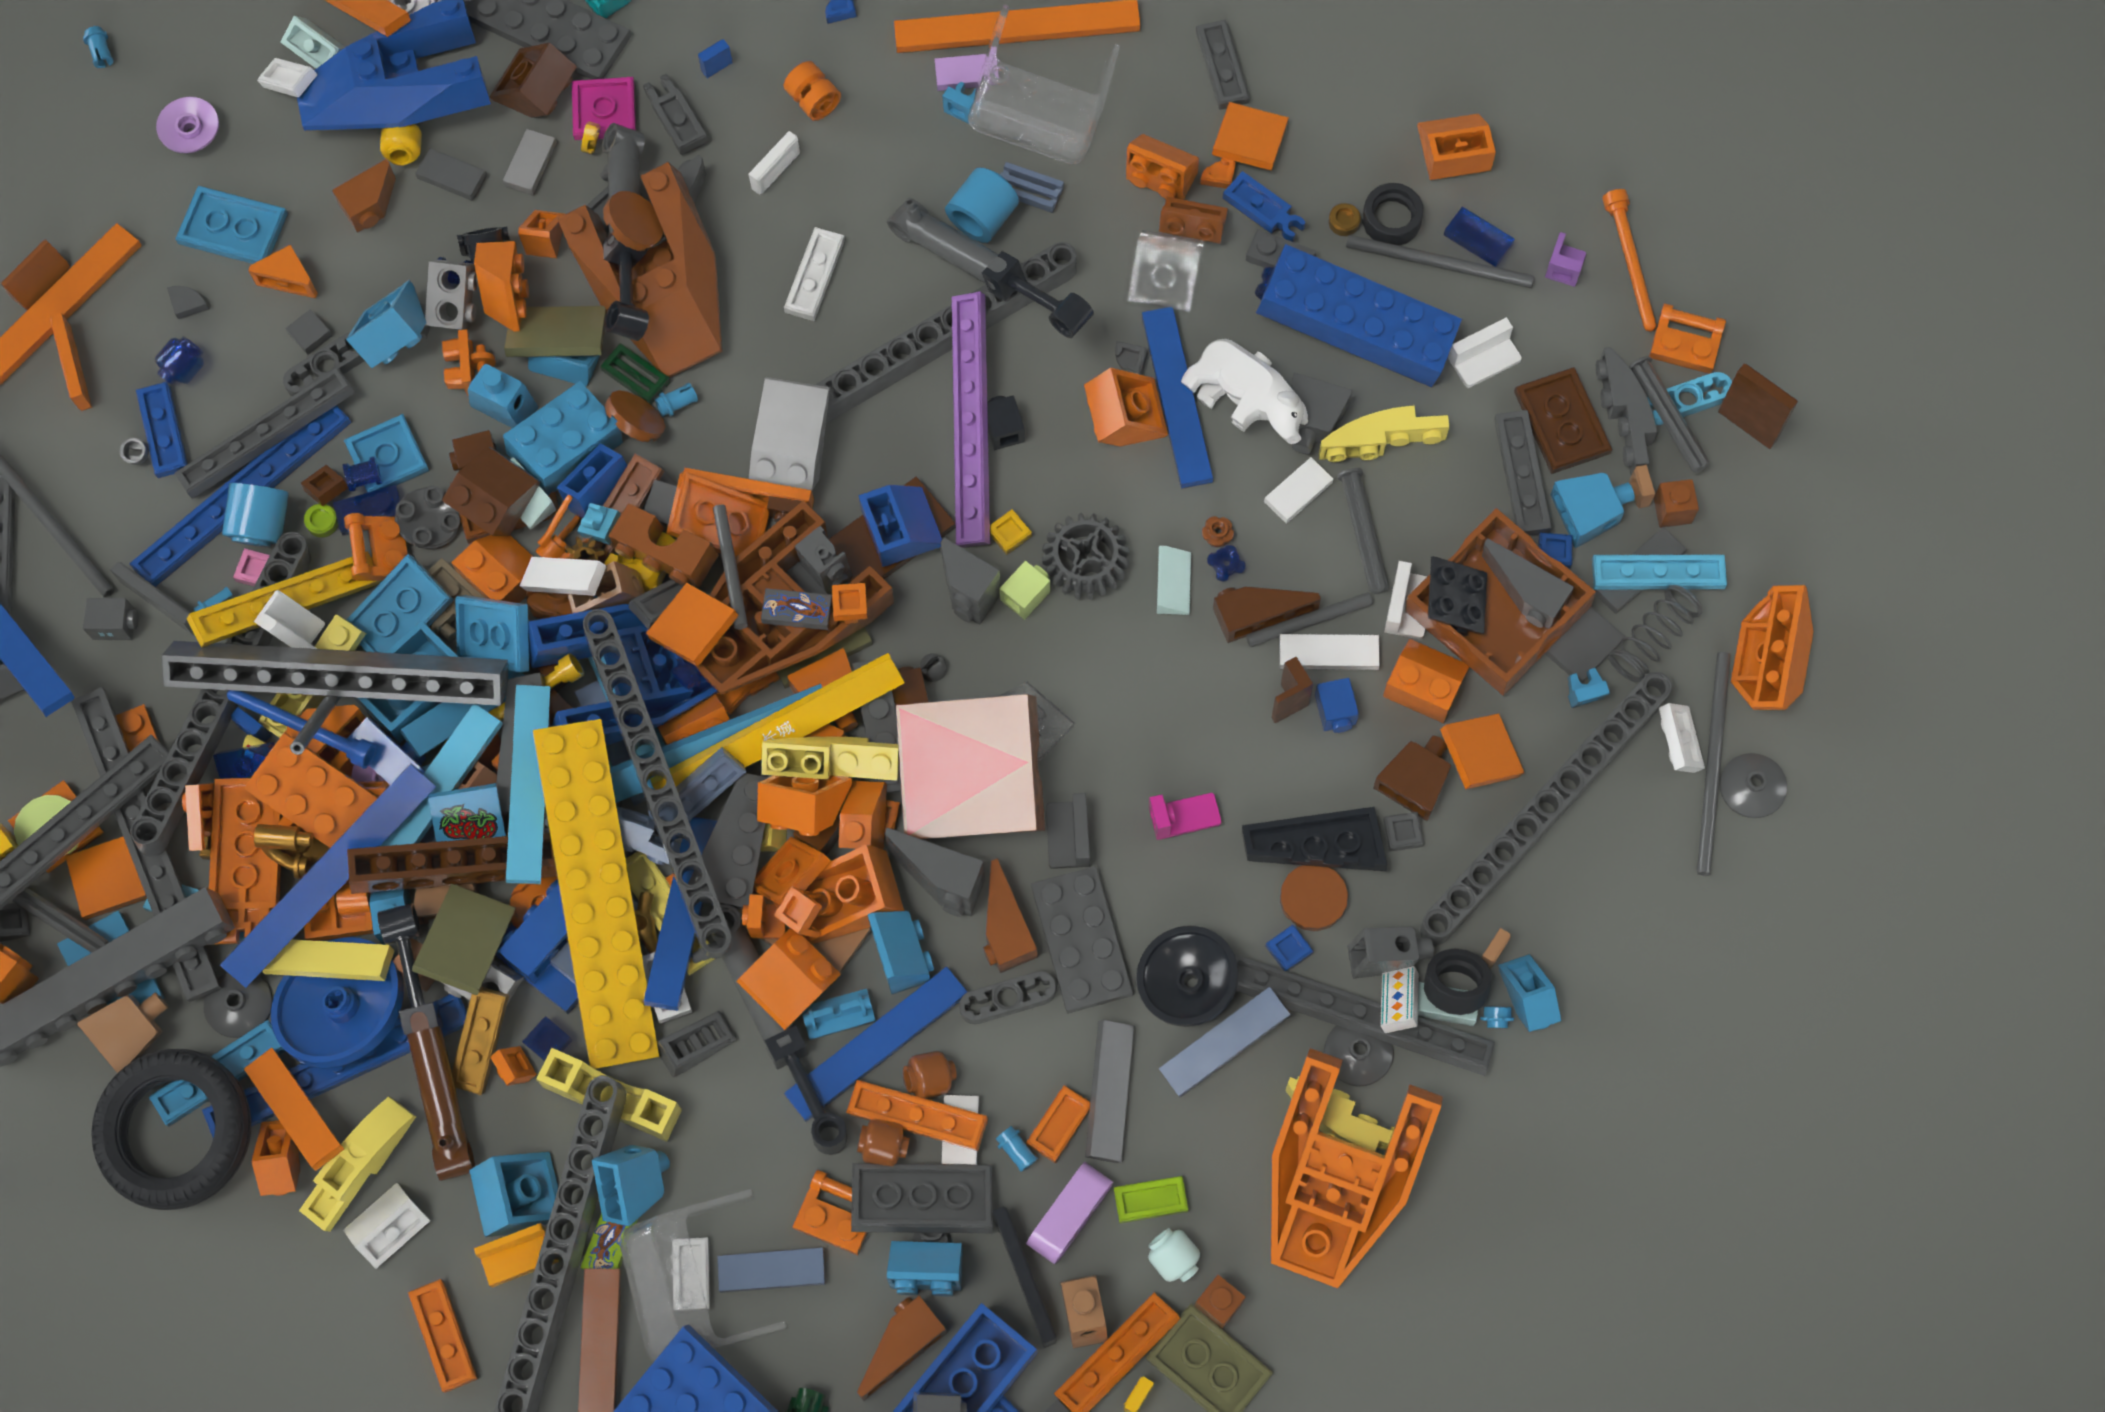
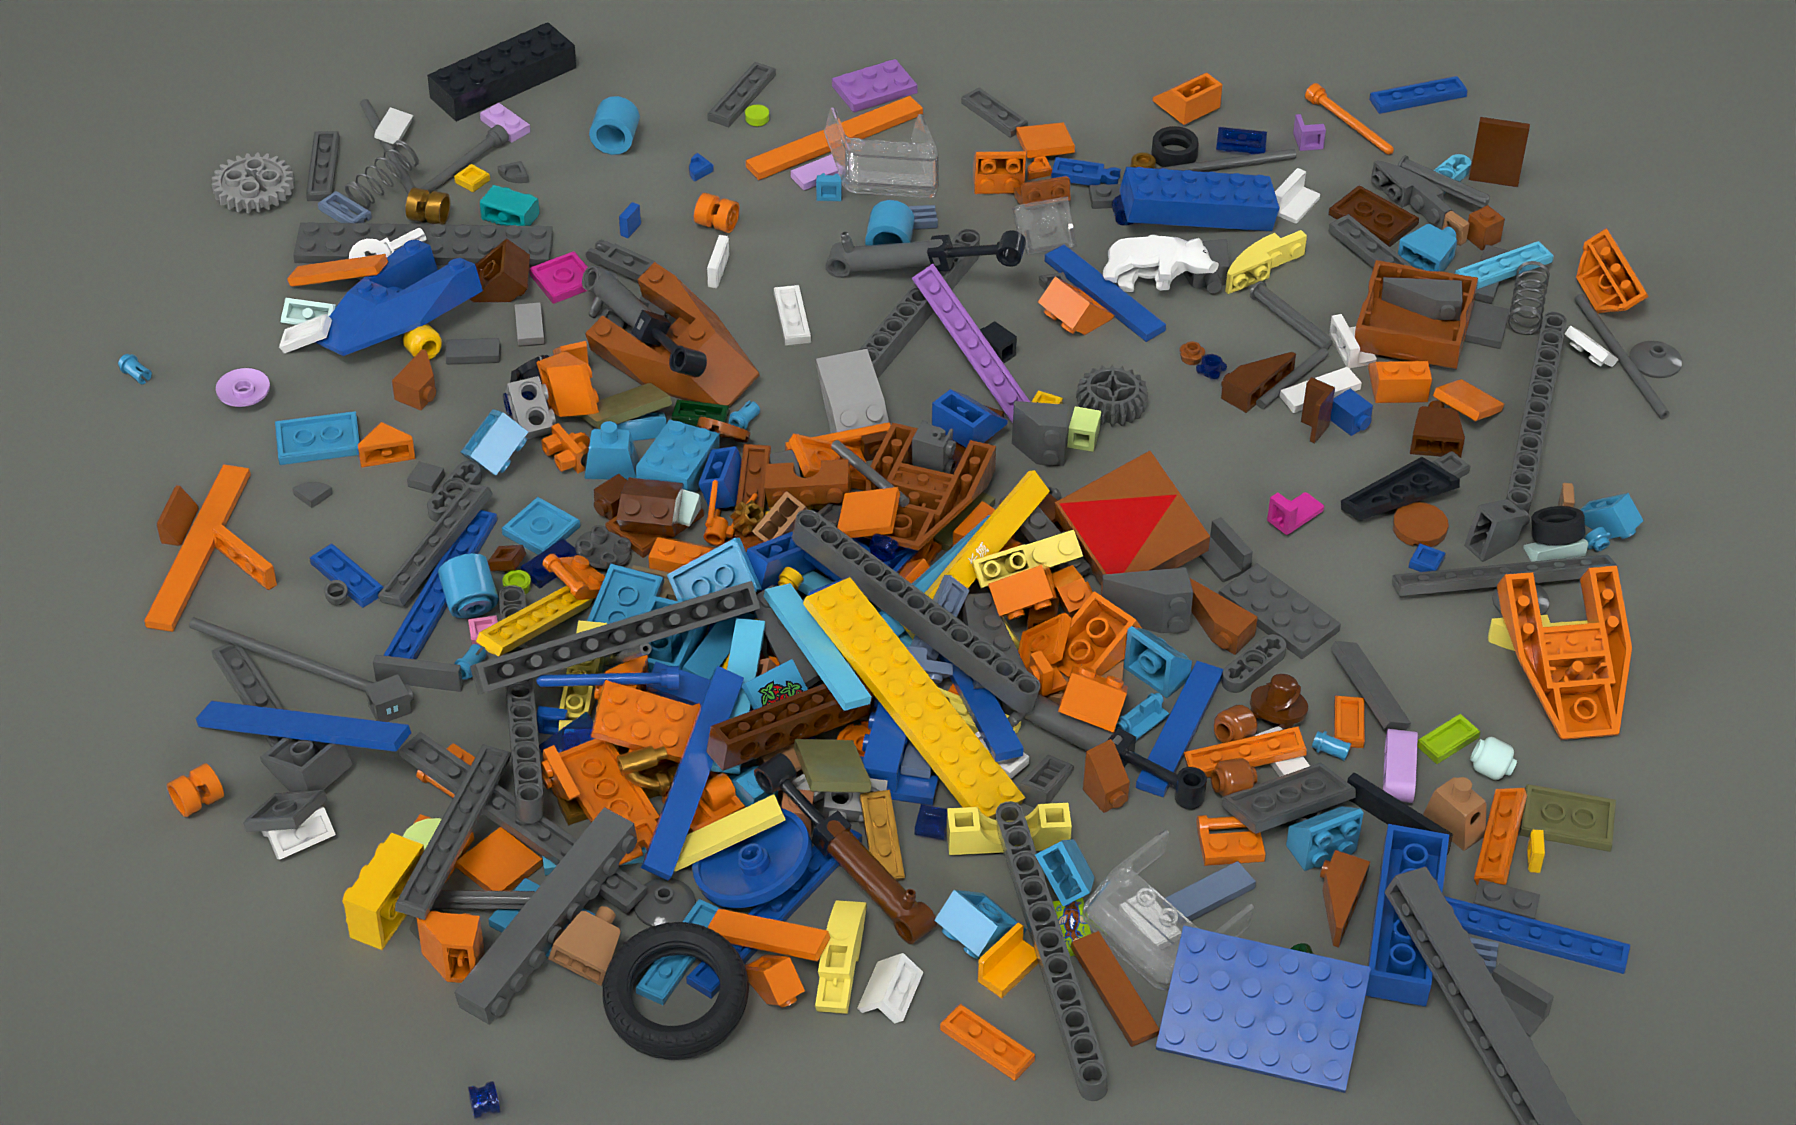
camera: 30 degrees left, 25 degrees down
(179, 360) = (335, 524): clear blue head -> none
(289, 621) = (546, 625): white panel -> none
(362, 474) = (536, 535): clear blue bush -> none
(513, 1065) = (917, 847): orange plate -> none
(563, 576) = (749, 521): white tile -> none
(590, 137) = (568, 284): yellow tile -> none
(598, 523) = (745, 491): medium azure tile -> none
(633, 220) = (651, 304): dark orange tile -> none
(746, 1082) = (1105, 777): none -> dark orange slope
(796, 609) = (938, 478): tile -> none
(799, 911) = (1074, 650): orange panel -> none
(849, 602) = (978, 456): orange tile -> none
(993, 1069) = (1279, 701): none -> reddish brown plate
(1173, 581) = (1181, 390): light aqua slope -> none
(1176, 959) = (1374, 591): black dish -> none
(1220, 1301) = (1548, 767): dark orange brick -> none
(1224, 1042) = (1428, 623): sand blue tile -> none
(1298, 490) = (1228, 312): white tile -> none
(1399, 999) = (1528, 550): white tile -> none
(1457, 596) = (1388, 314): black hinge -> none
(1586, 693) = (1509, 343): dark azure tile -> none
(1684, 347) = (1422, 153): orange plate -> none
(1744, 253) = (1418, 94): none -> blue tile

